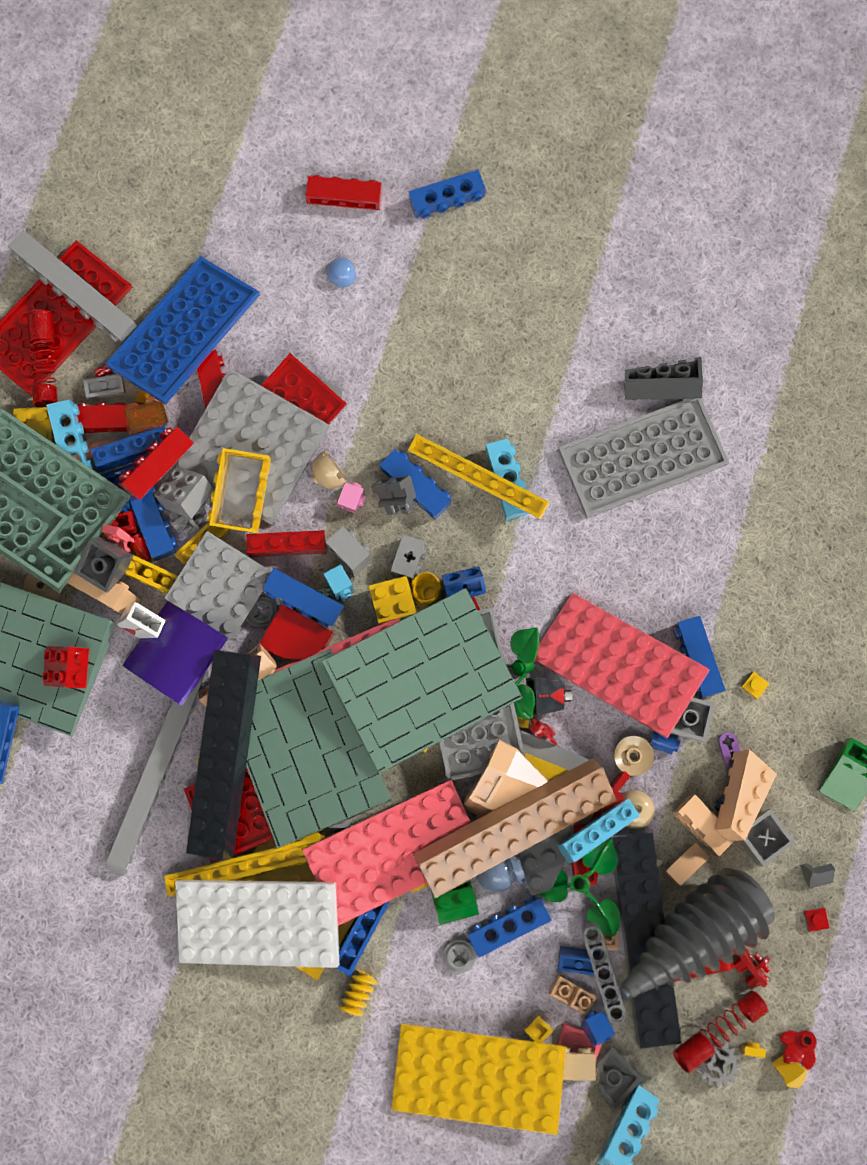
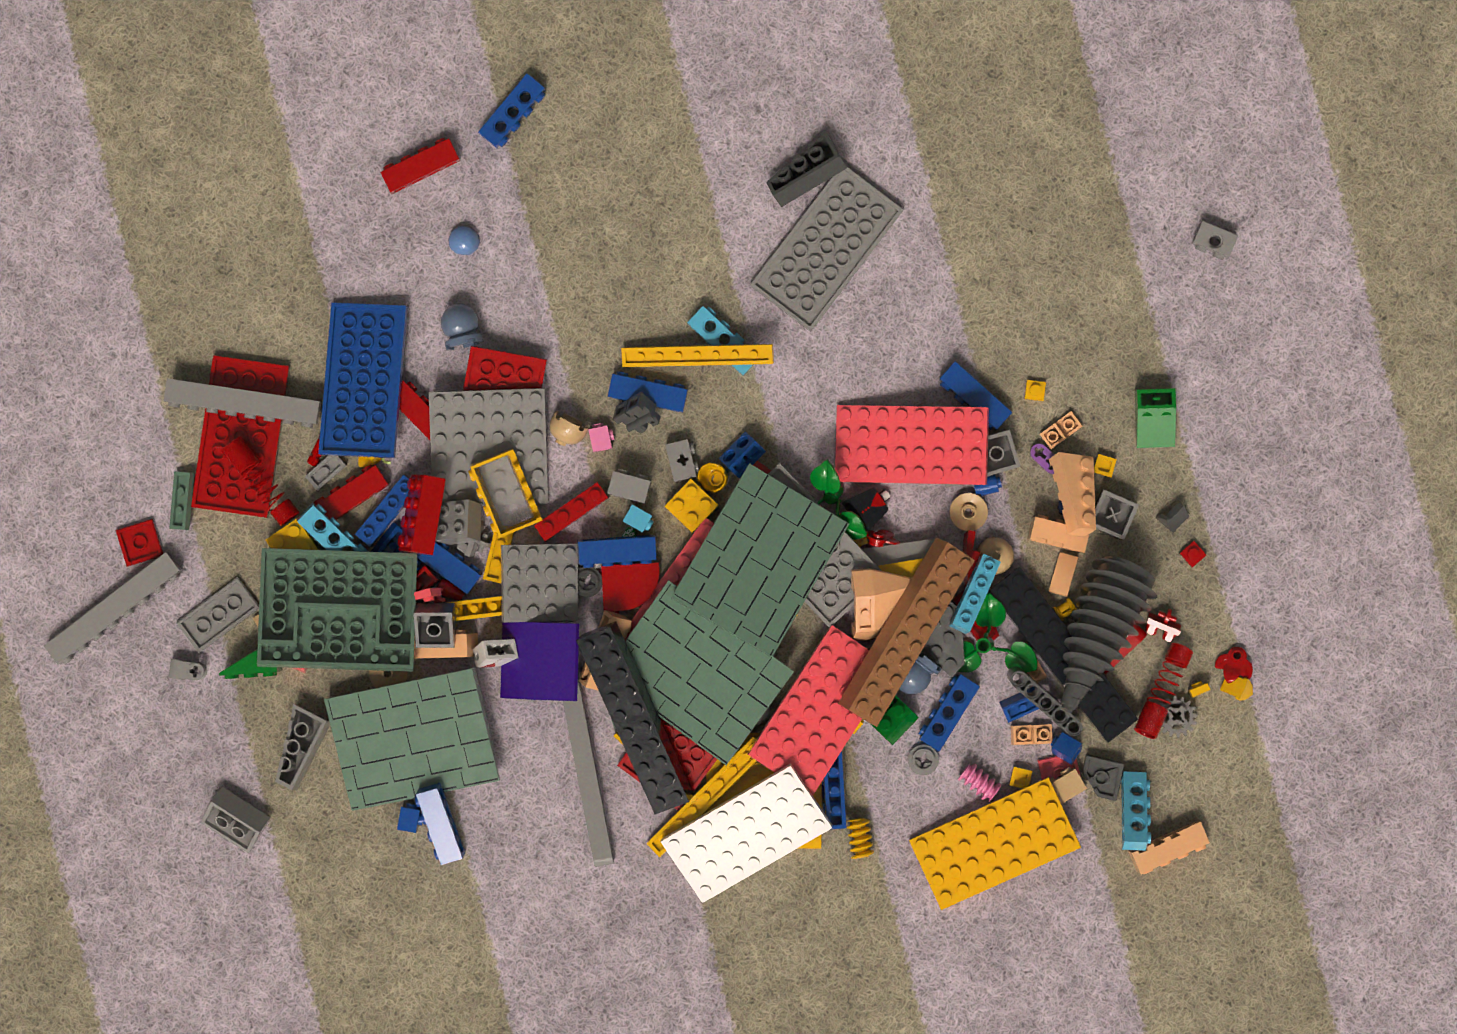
camera: 25 degrees left, 10 degrees up
(65, 667) = (460, 728): red bracket -> none
(144, 416) = (384, 478): clear orange brick -> none
(292, 335) = (460, 326): none -> sand blue tile
(499, 1010) = (979, 781): none -> bright pink piece
(671, 897) = (1064, 609): none -> yellow bush
(759, 734) = (1061, 429): none -> light nougat slope
(781, 789) = (1104, 465): none -> yellow plate

